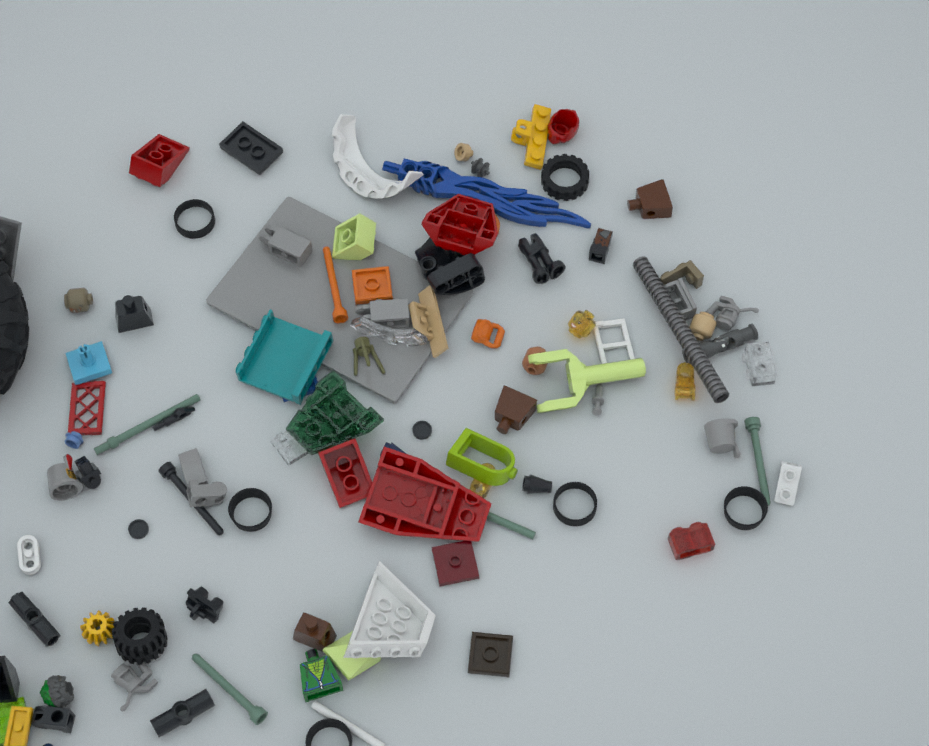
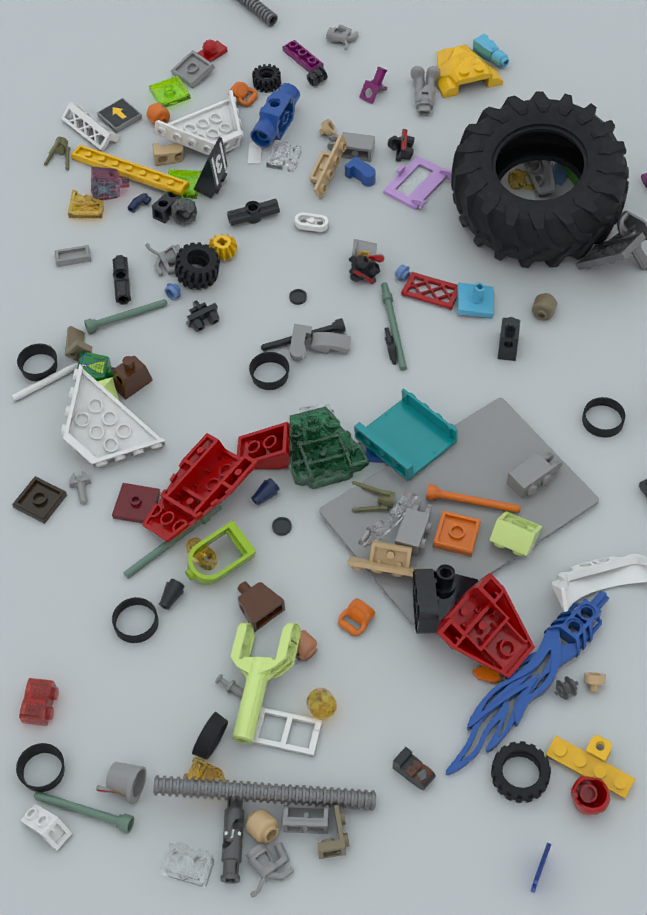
camera: 115 degrees right, 5 degrees down
(178, 653) = (172, 291): none -> medium blue plate
(293, 716) = (75, 343): none -> dark tan bracket
(458, 623) = (80, 486): none -> light grey bar
(536, 250) = (432, 694): black piece -> none
(635, 138) = (540, 867): none -> clear blue piece
(652, 201) = (448, 850): reddish brown torso -> none
(654, 398) = (210, 736): none -> black tyre

